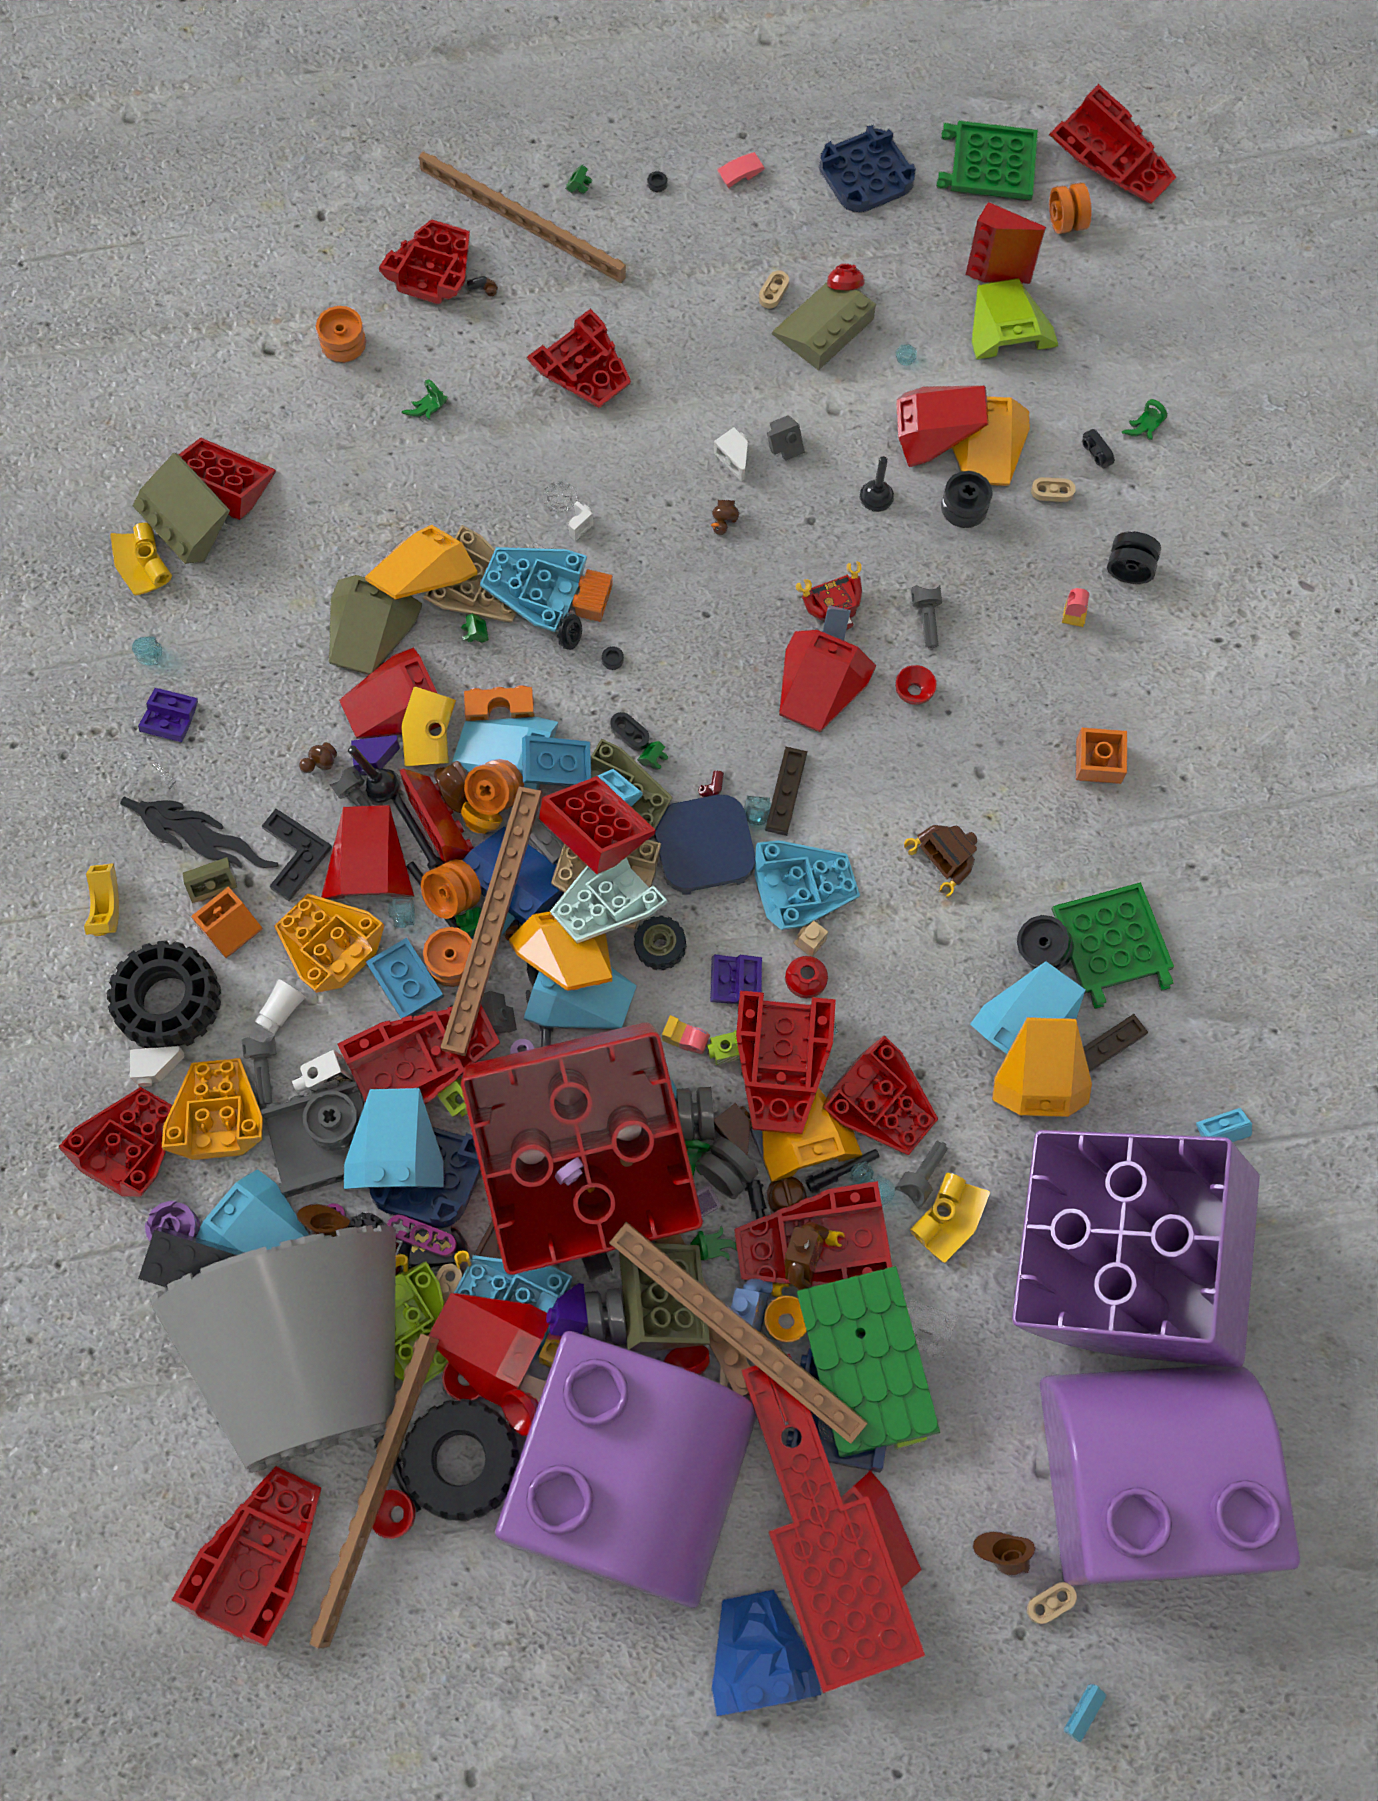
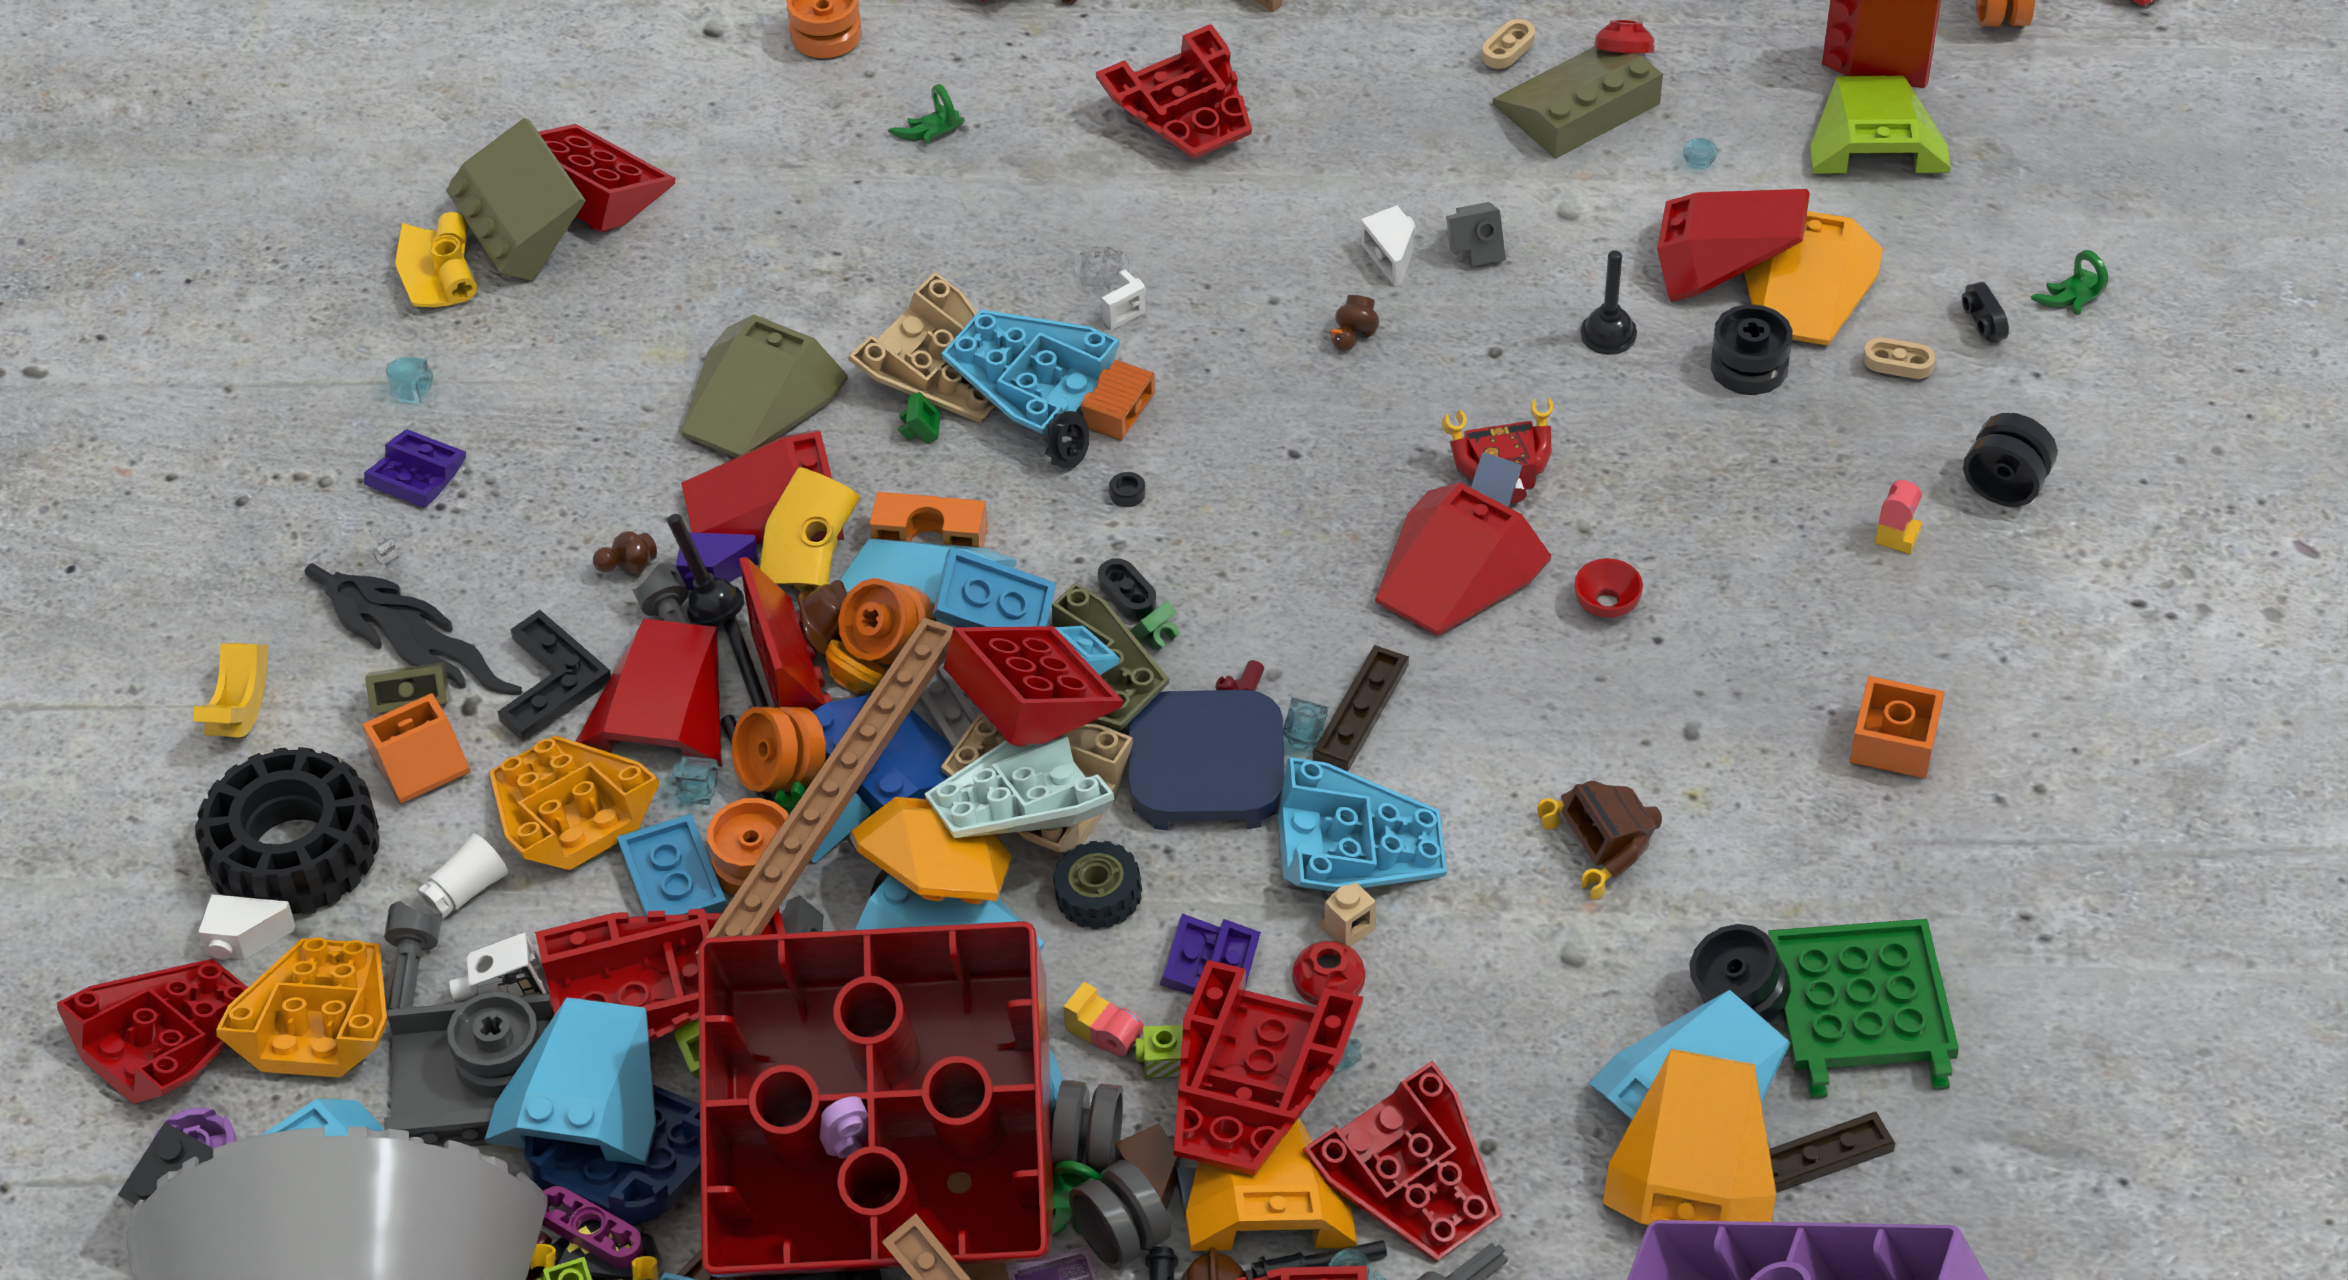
camera: 15 degrees right, 20 degrees down
(422, 564) = (861, 309): light orange wedge -> none
(927, 600) = (1654, 476): dark grey piece -> none

